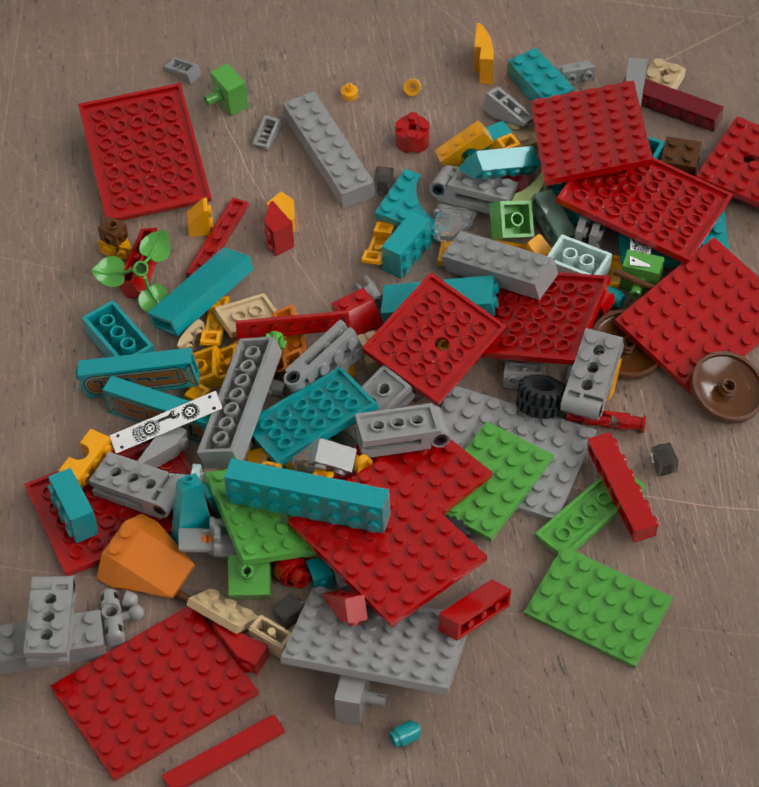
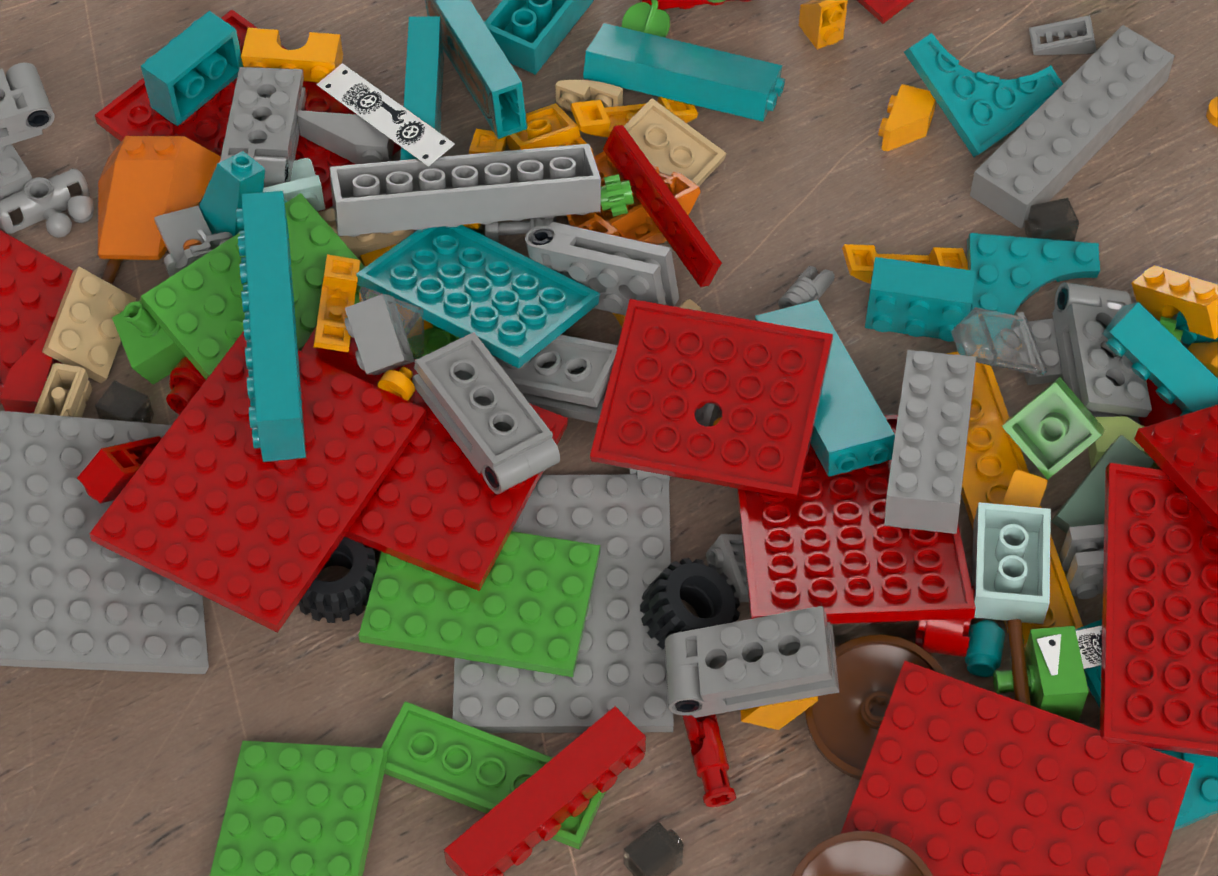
camera: 65 degrees right, 5 degrees up
(220, 233) = (826, 58): red tile -> none
(278, 230) = (853, 116): red slope -> none
(294, 177) = (977, 103): none -> teal plate
(362, 311) = (746, 284): red slope -> none
(412, 133) = (1179, 224): red brick -> none
(474, 609) = (198, 657): red brick -> none

